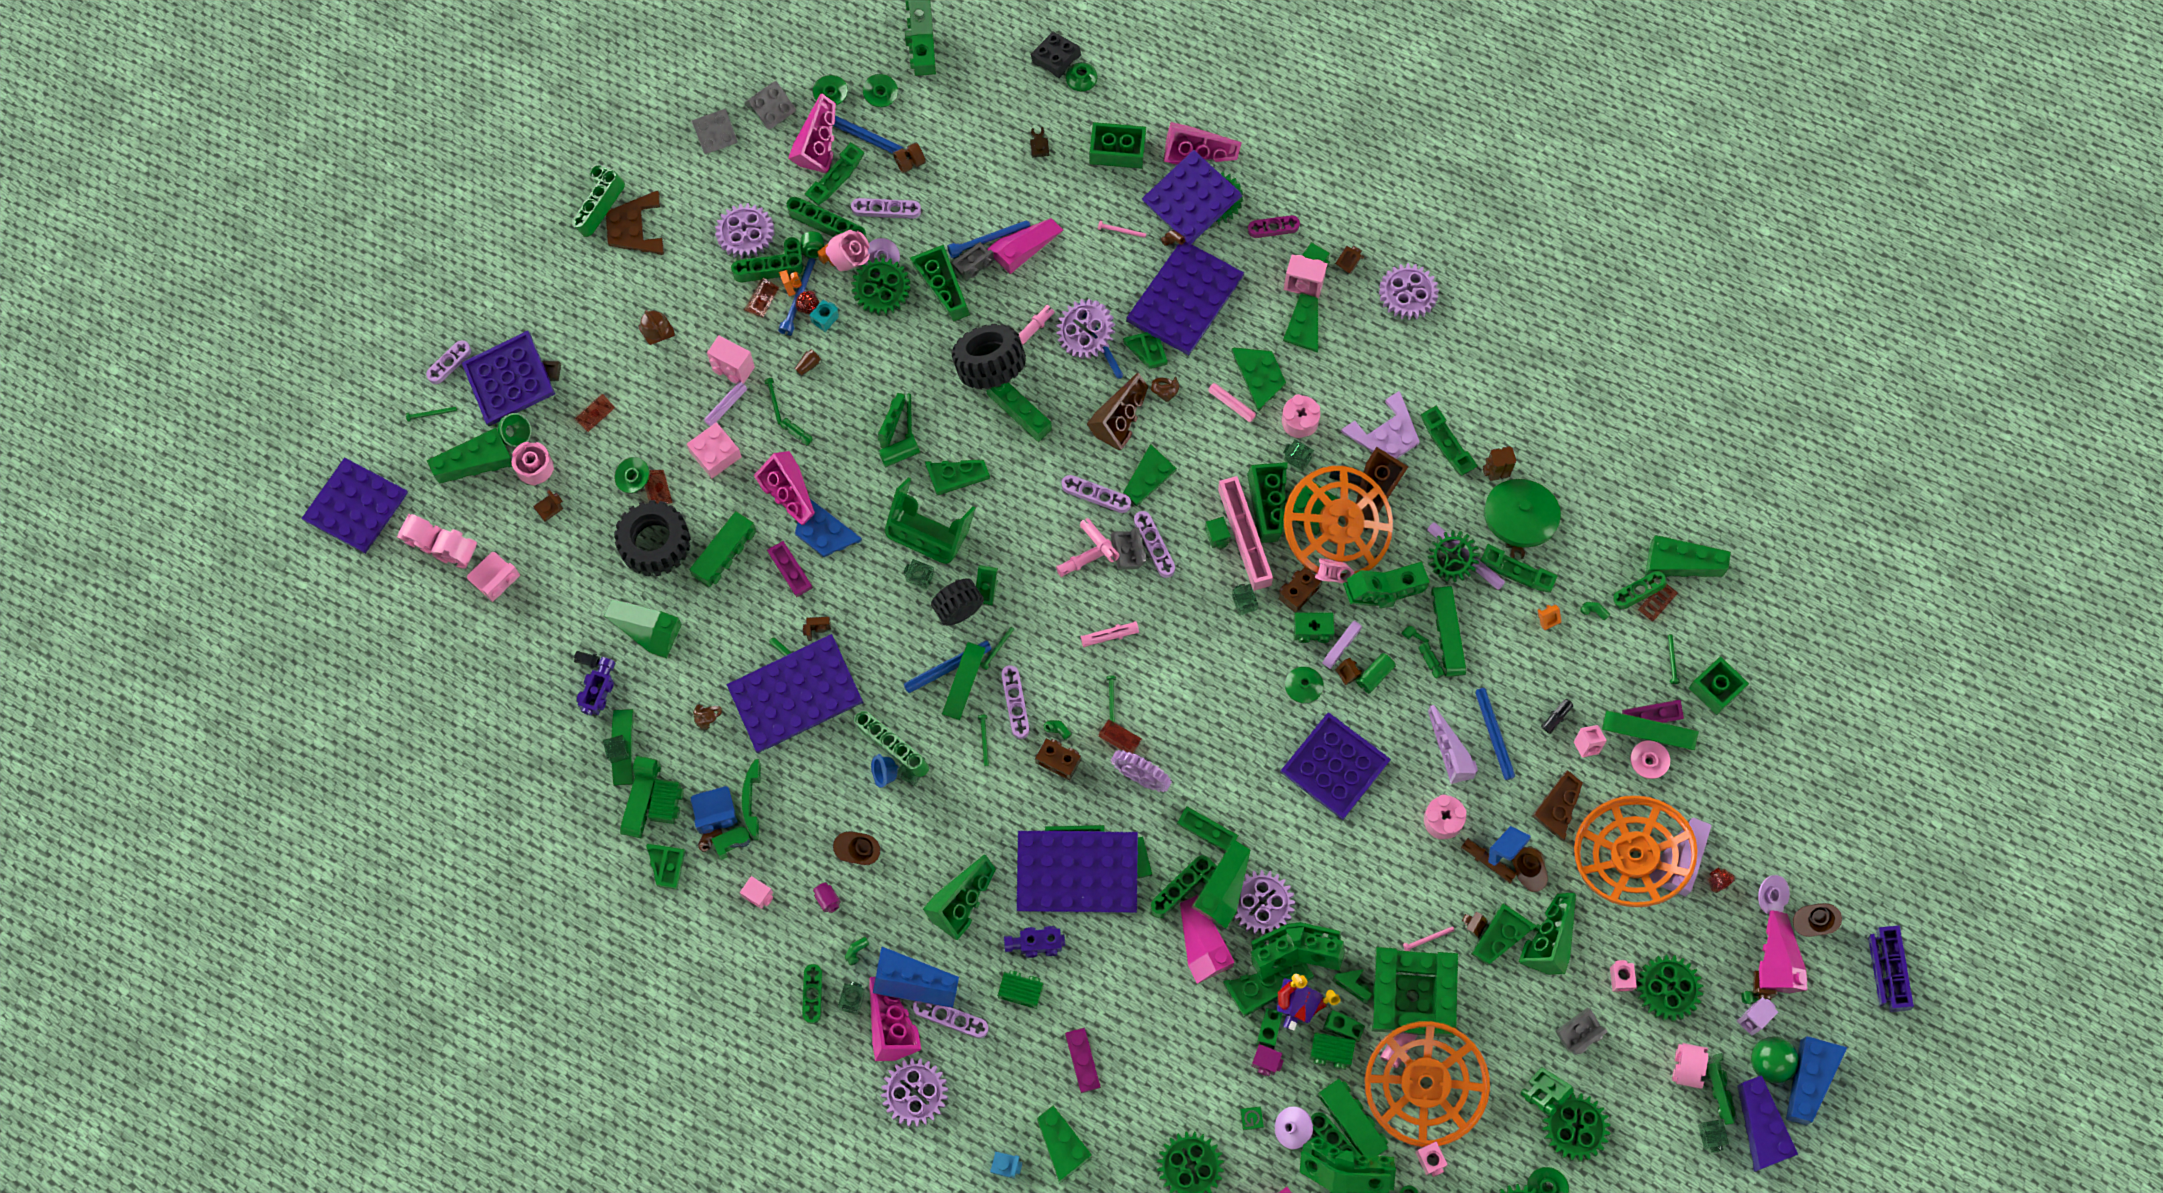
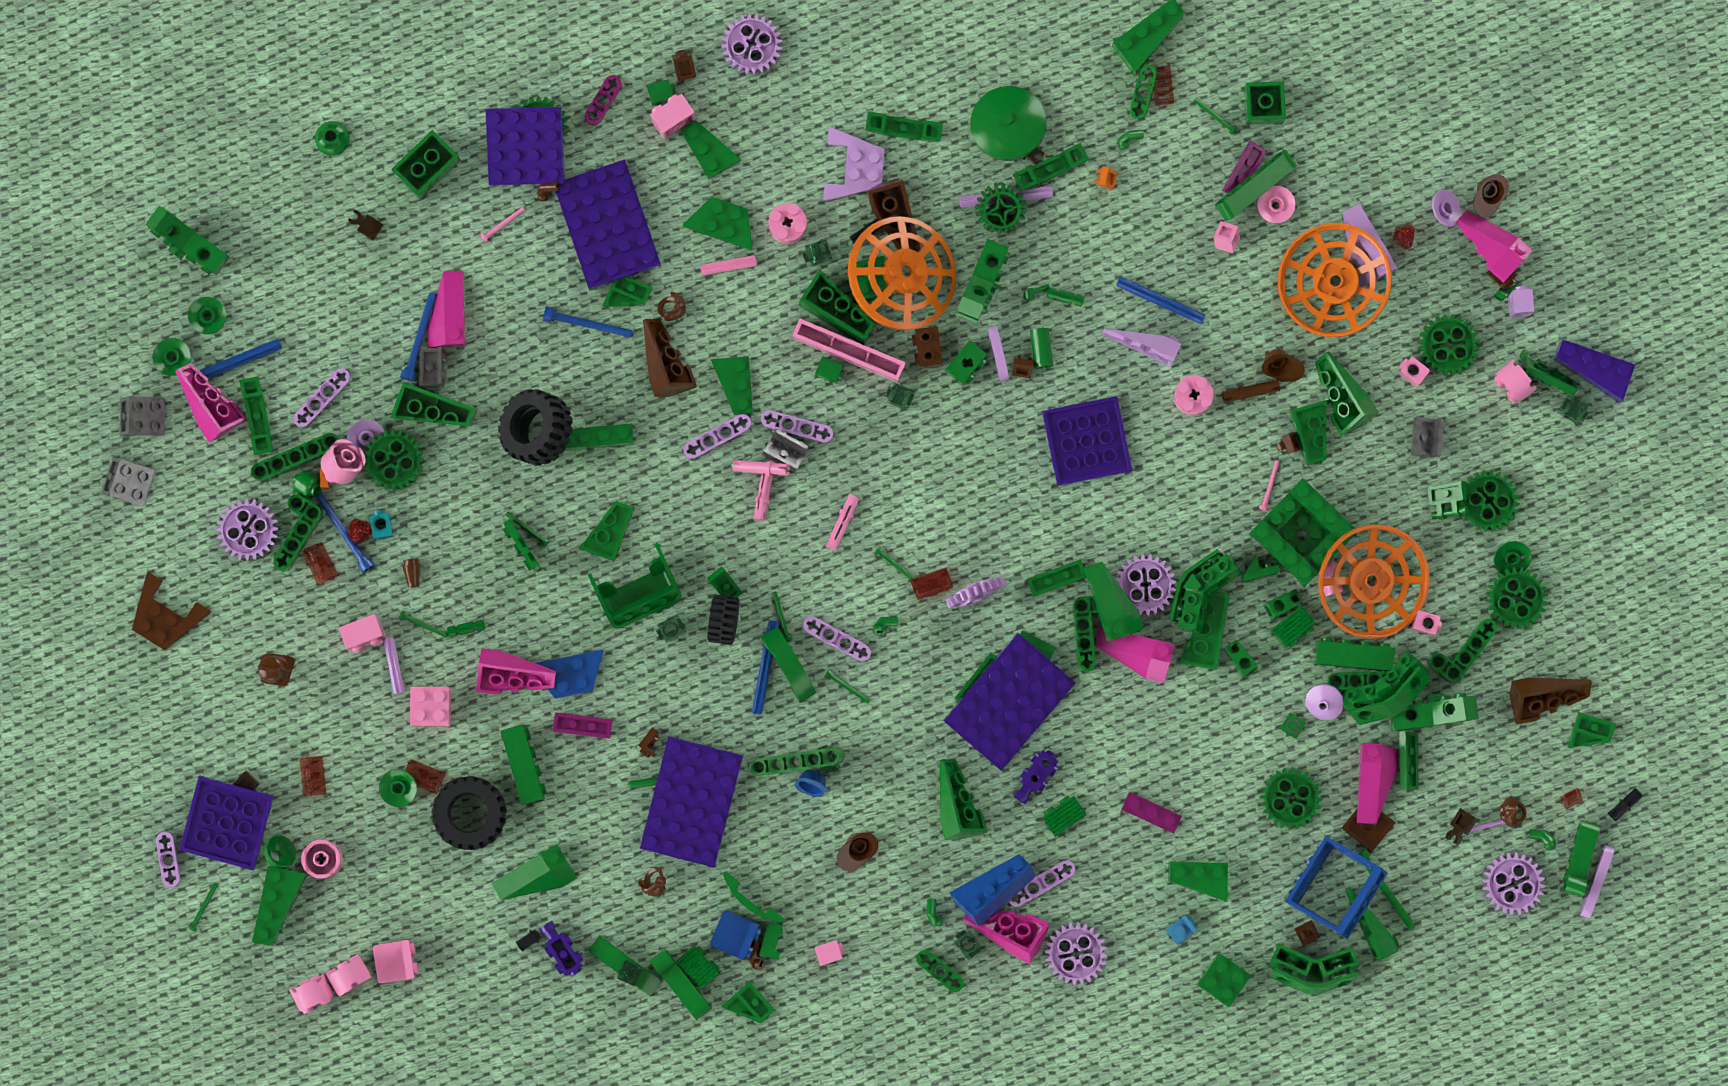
camera: 50 degrees left, 15 degrees up
(354, 505) = (238, 1026): dark purple plate -> none
(549, 506) = (369, 873): reddish brown bracket -> none
(600, 200) = (118, 631): green beam -> none
(789, 283) = (328, 530): orange tile -> none
(826, 897) = (875, 903): magenta brick -> none
(899, 451) = (553, 561): green pin -> none
(915, 155) = (294, 336): reddish brown wheel -> none
(1036, 323) = (530, 364): bright pink pin -> none
(1055, 54) = (295, 143): black brick -> none
(1058, 758) = (910, 644): reddish brown brick -> none
(1095, 314) = (567, 312): lavender gear -> none
(1184, 139) = (469, 103): dark pink wedge -> none
(1267, 1061) = (1262, 680): magenta brick -> none
(1301, 1002) = (1241, 620): torso -> none
(1303, 693) = (997, 416): green dish -> none
(1331, 570) = (938, 312): bright pink piece -> none
(1449, 630) = (1055, 263): green beam -> none
(1500, 463) = (957, 106): reddish brown brick -> none
(1508, 845) = (1255, 368): blue panel -> none
(1557, 716) = (1186, 242): black axle -> none
(1558, 805) = (1252, 302): reddish brown wing -> none
(1774, 1059) = (1558, 317): green piece -> none
(1813, 1077) = (1592, 302): blue wedge -> none
(1895, 969) = (1569, 172): dark purple brick -> none

